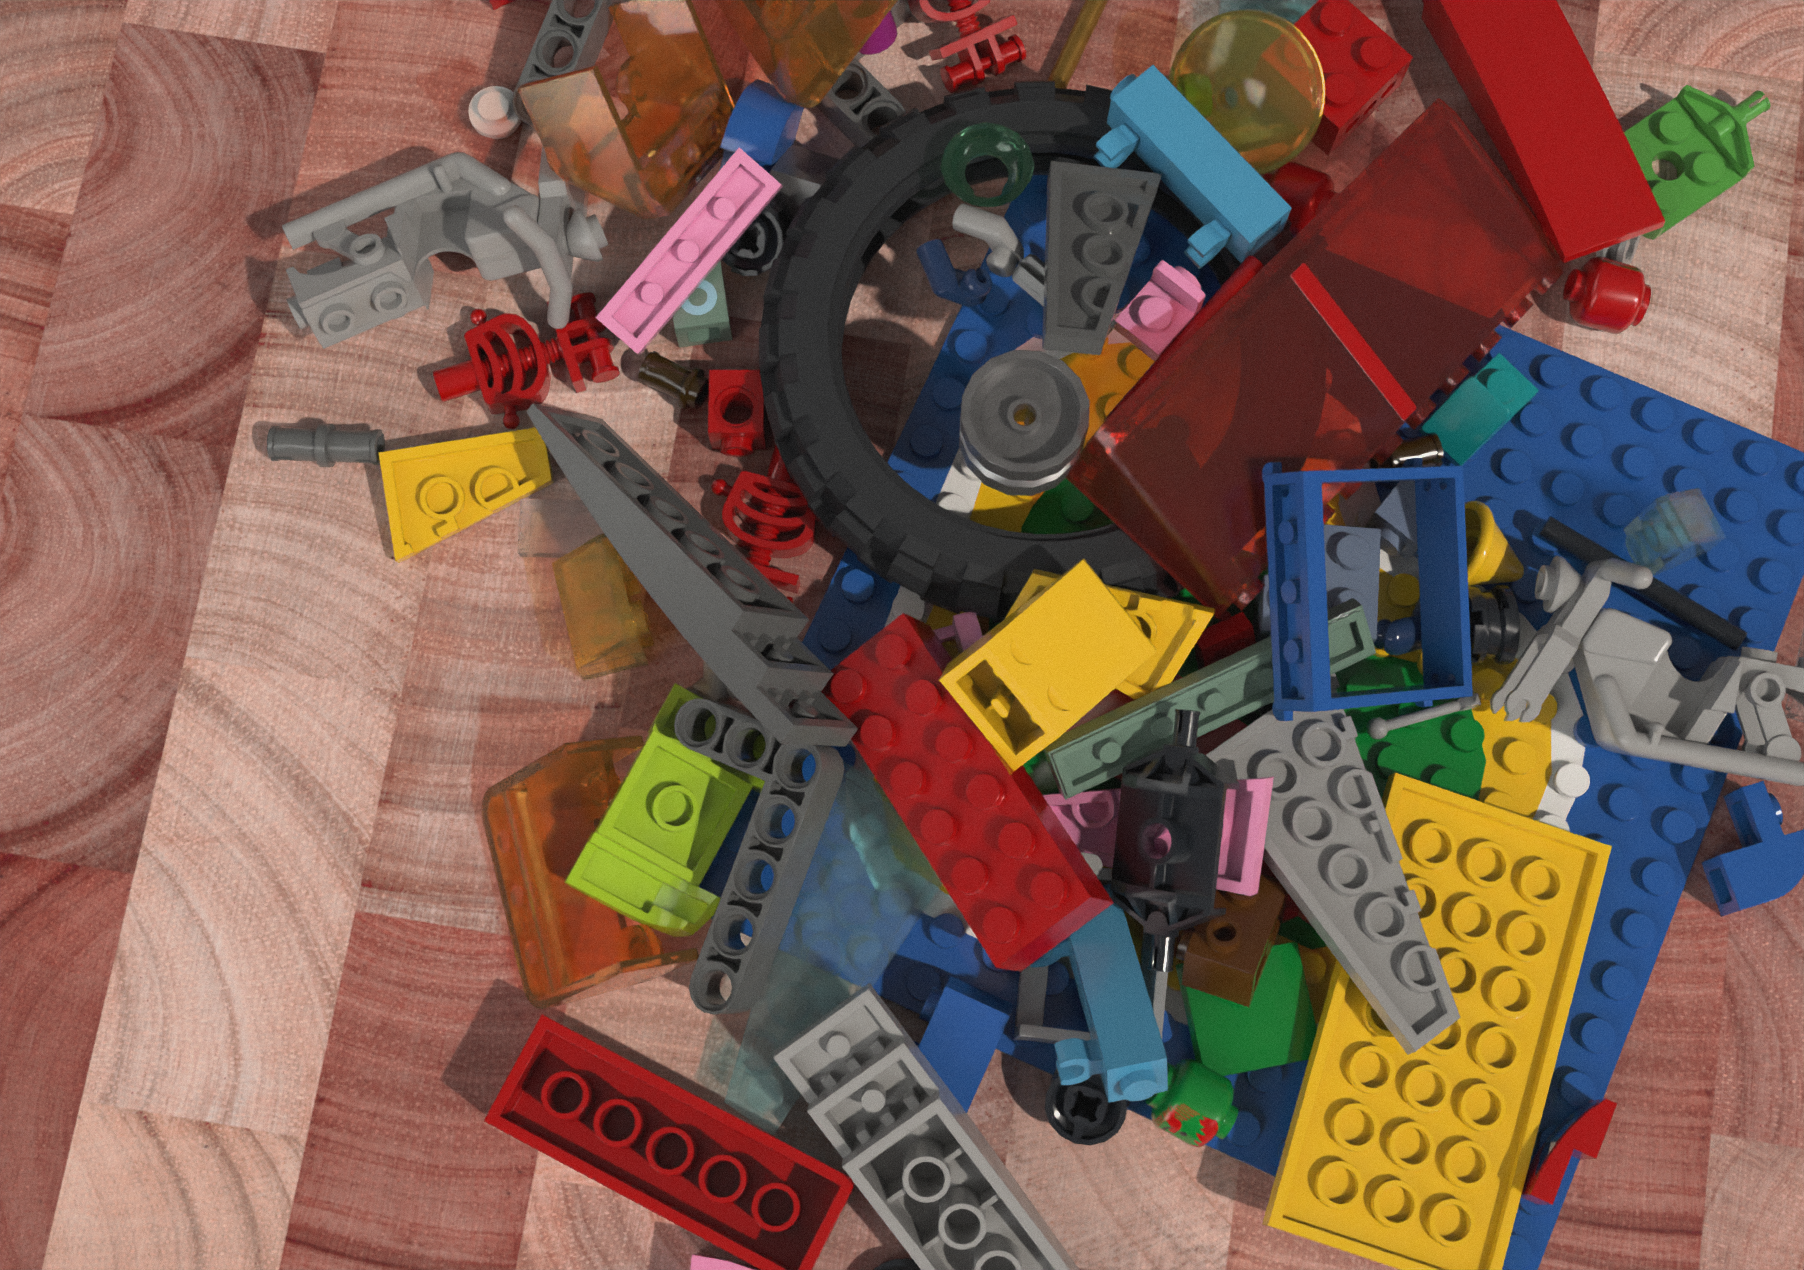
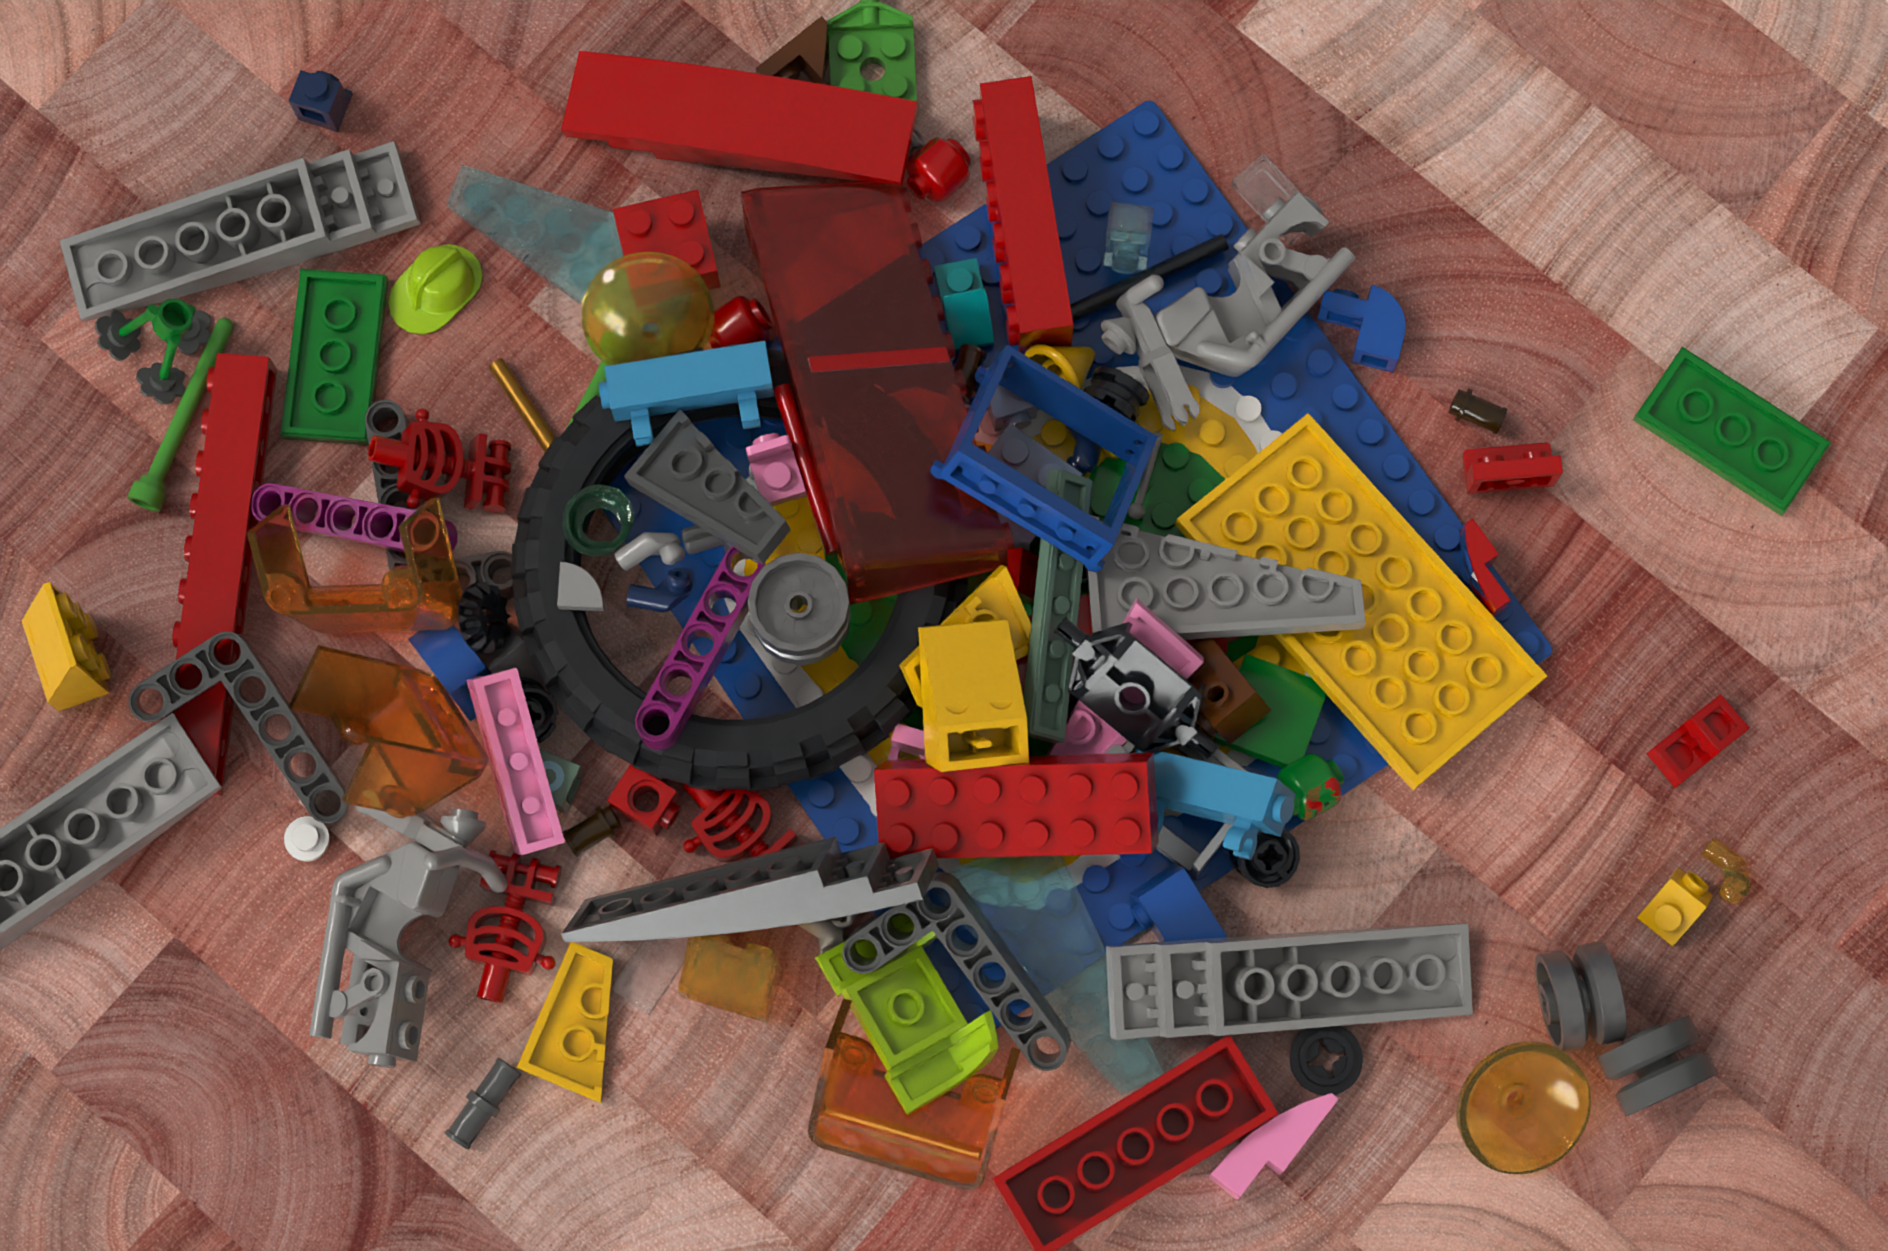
camera: 55 degrees left, 0 degrees up
(805, 120) = (482, 631): none -> black gear
(891, 337) = (697, 668): none -> magenta beam
(901, 192) = (578, 589): none -> light grey tile
(1619, 401) = (1023, 207): none -> red brick
(1633, 84) = (803, 53): none -> reddish brown slope
(1704, 1114) = (1511, 468): none -> red bracket
(1743, 1036) = (1477, 411): none -> dark brown pin

